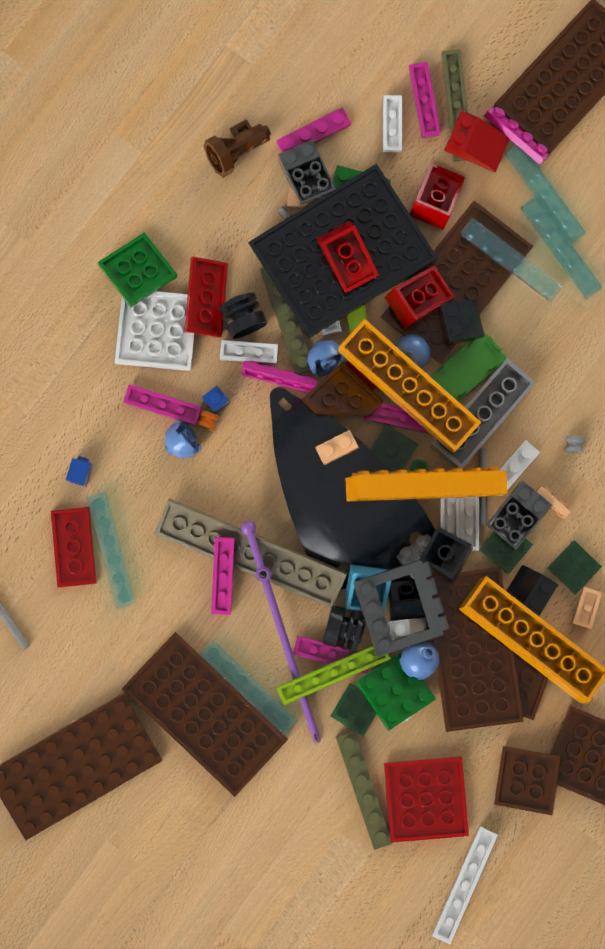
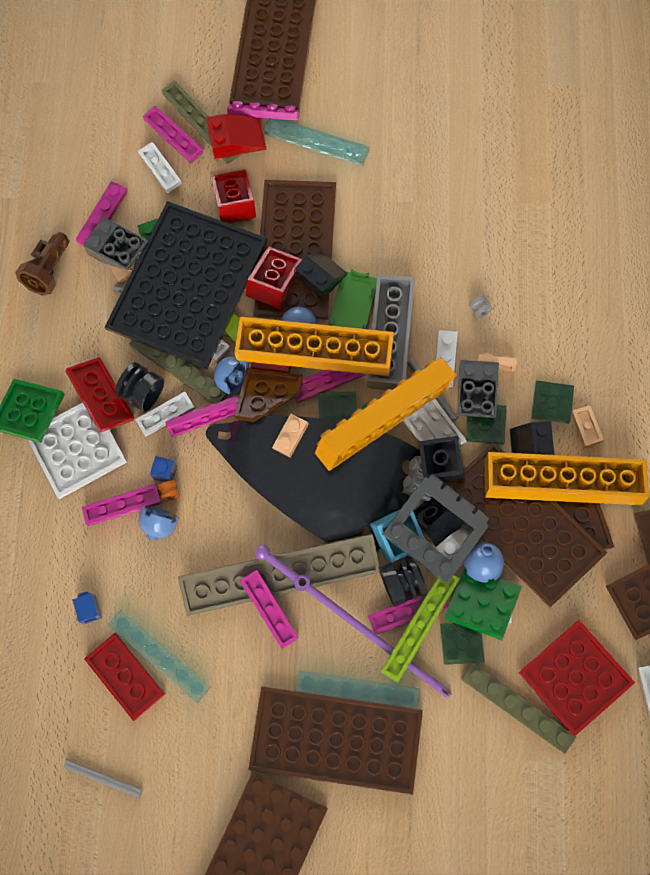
camera: 20 degrees left, 10 degrees down
(347, 256) = (193, 282): red slope -> none
(511, 259) = (326, 201): clear light blue plate -> none
(561, 247) = (358, 170): clear light blue plate -> none

